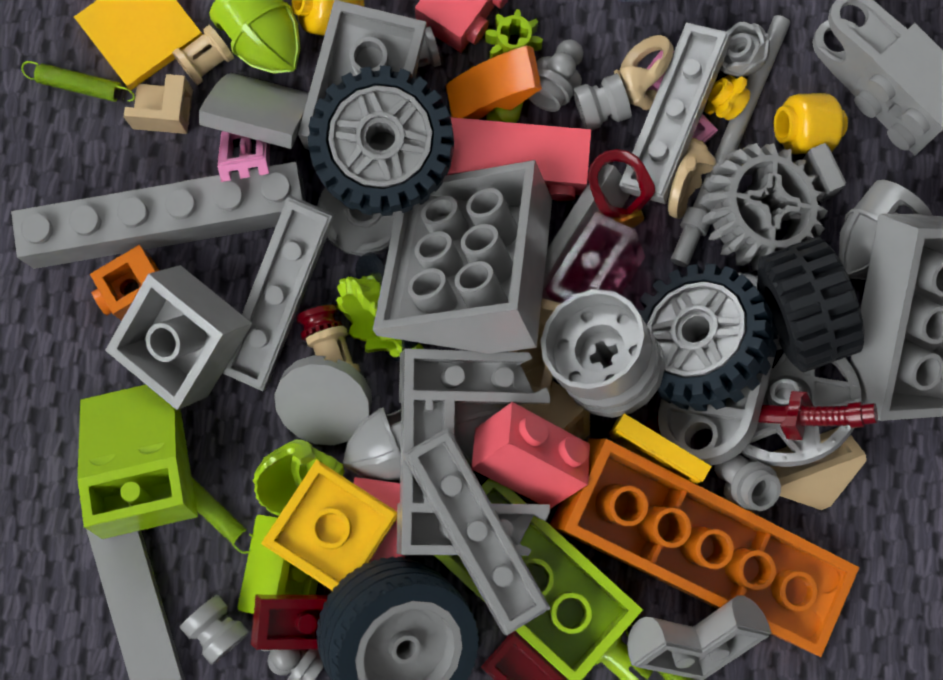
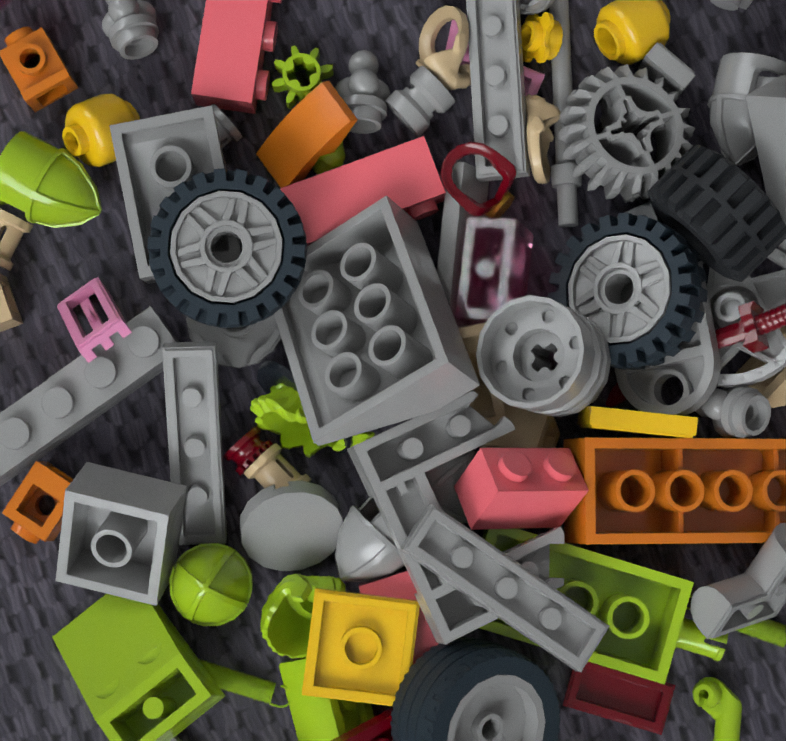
camera: 30 degrees left, 5 degrees up
(233, 417) = (211, 584): none -> lime helmet
(254, 109) = (84, 270): light grey slope -> none

